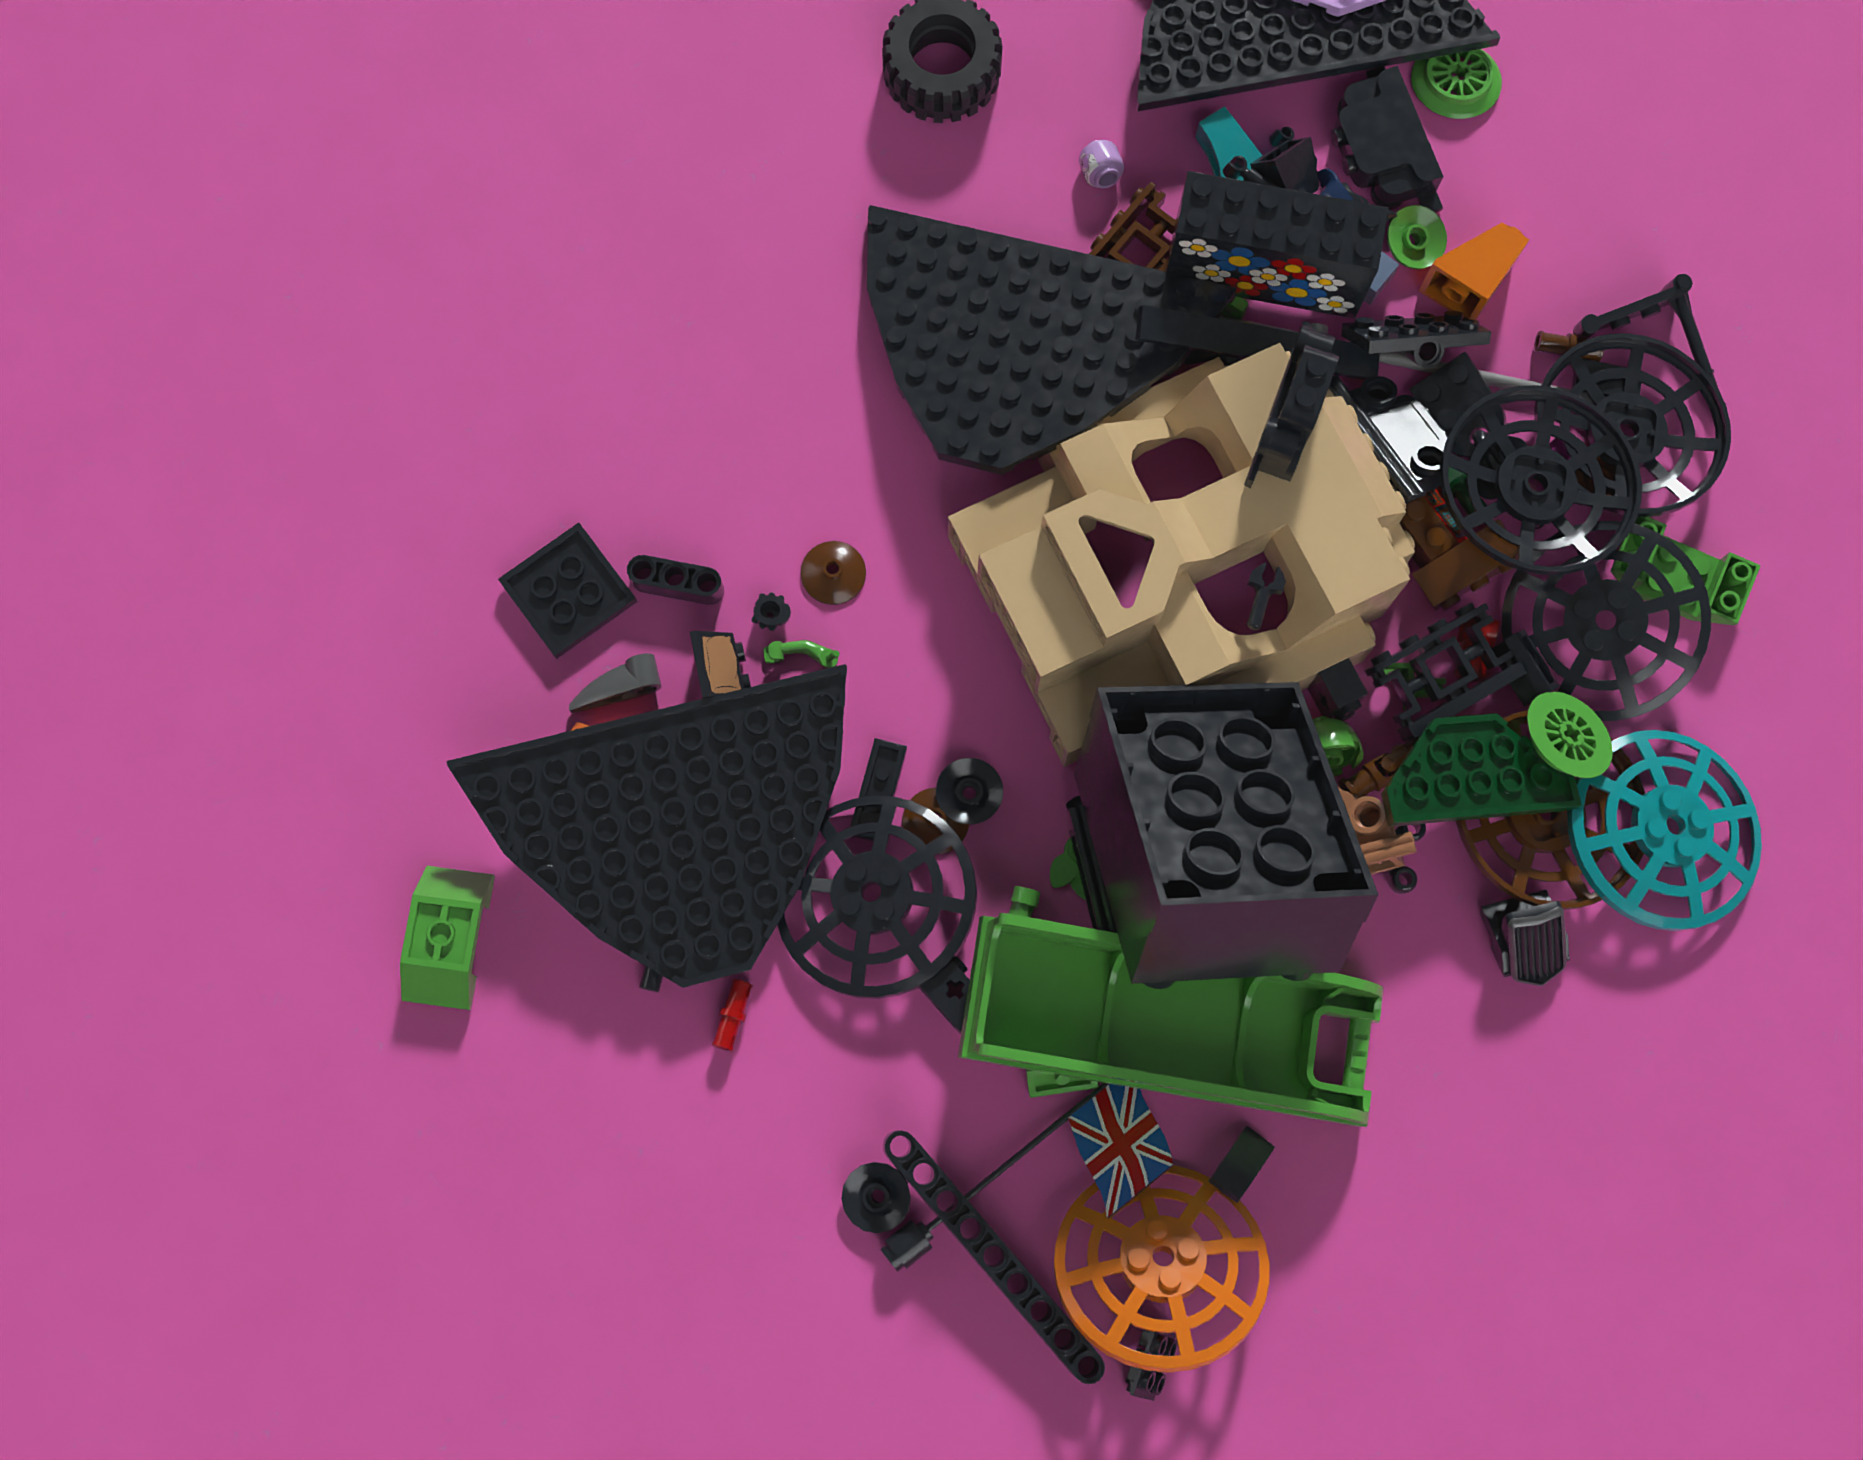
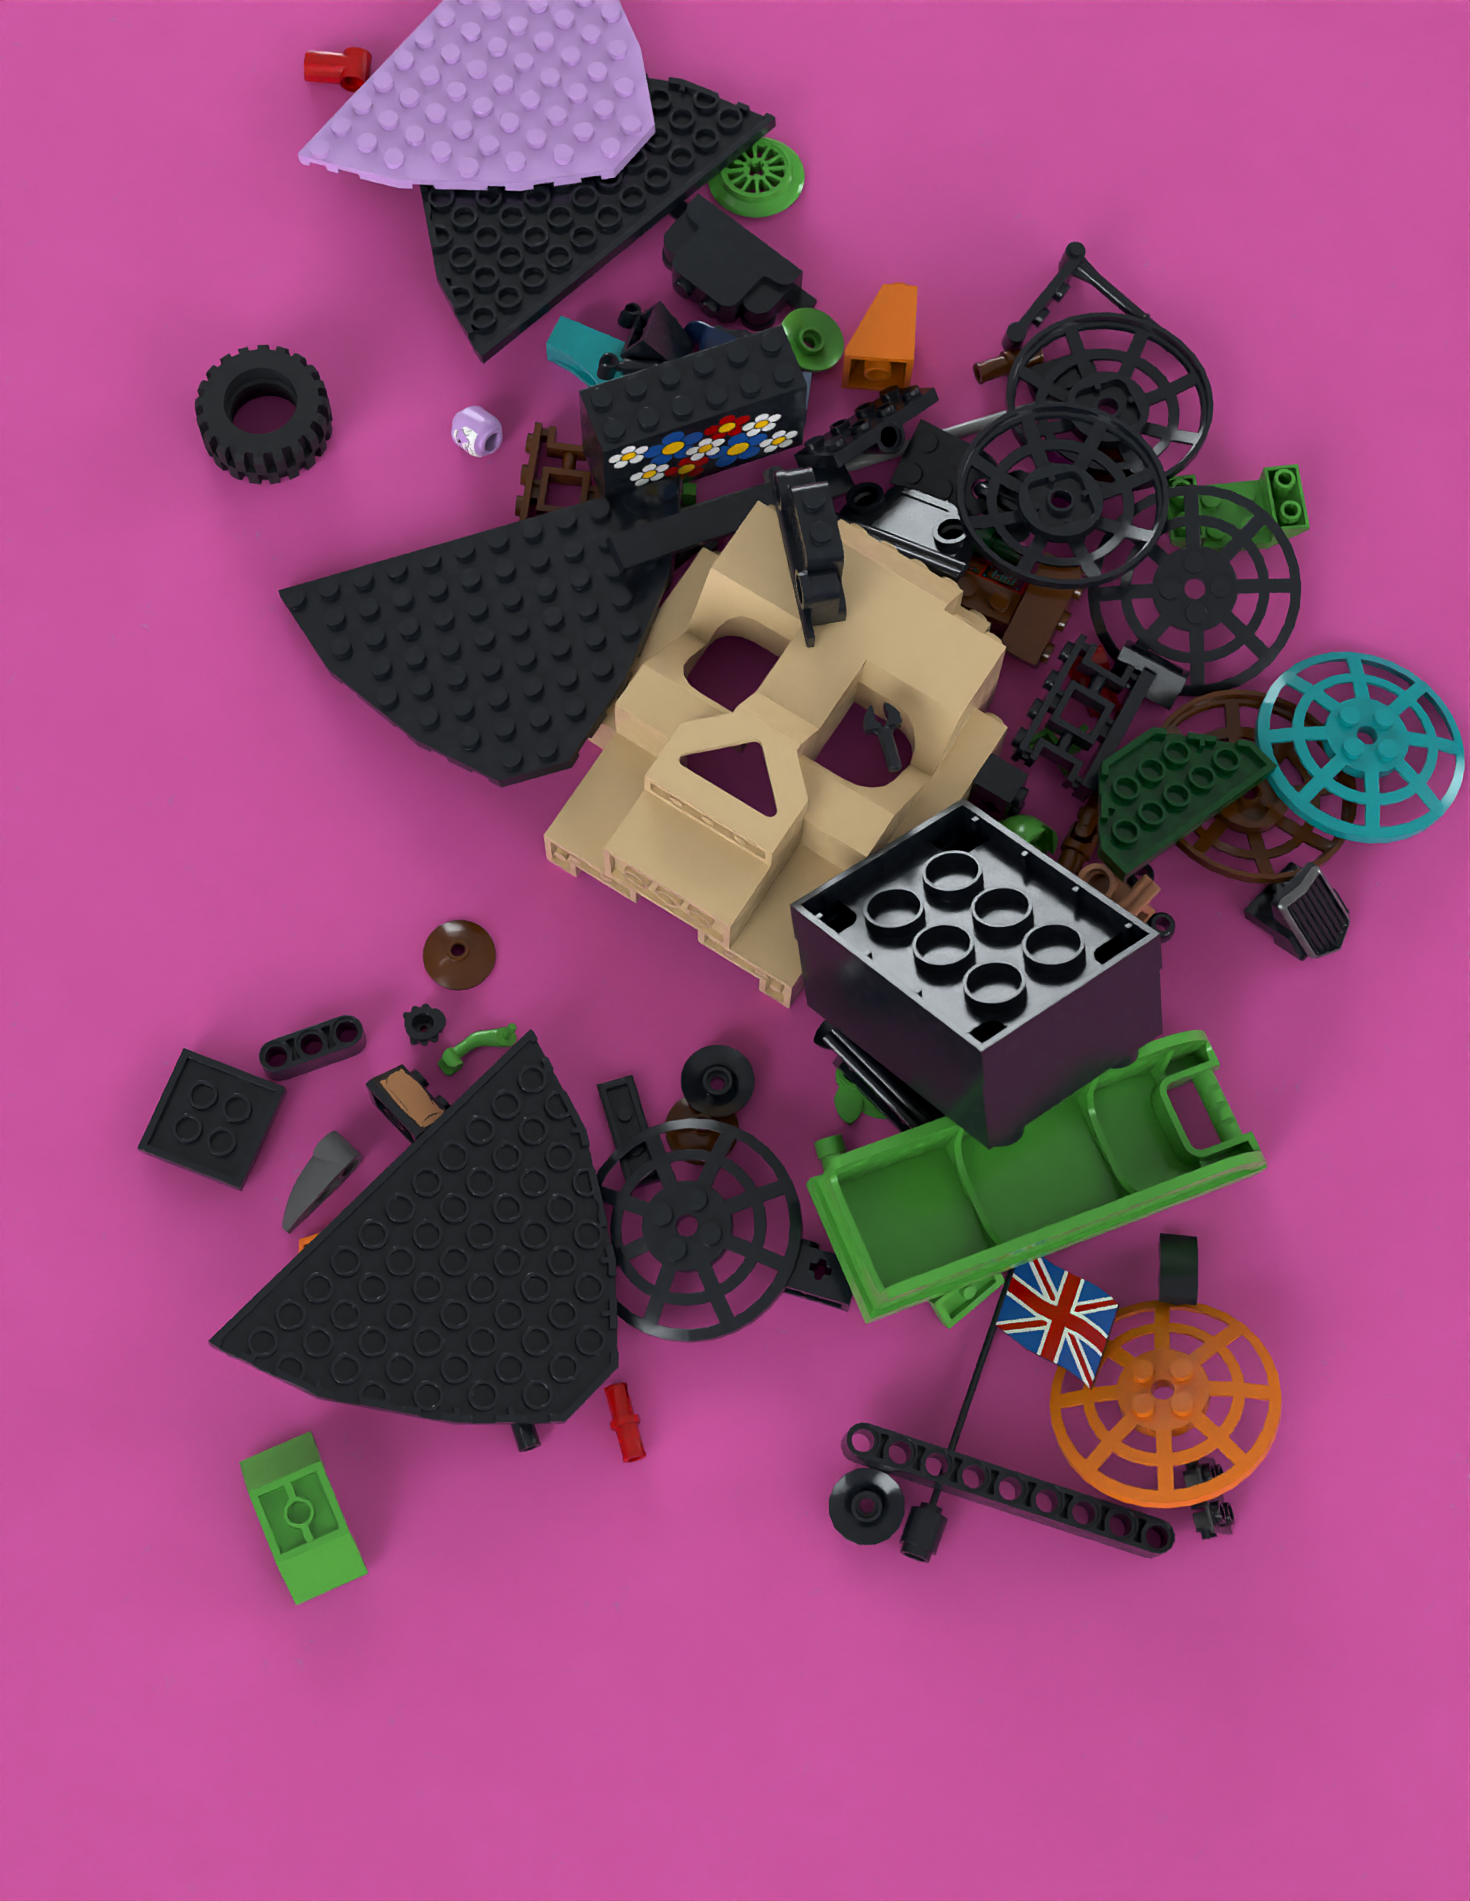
camera: 35 degrees left, 5 degrees down
(1569, 735) = (1227, 709): bright green piece -> none

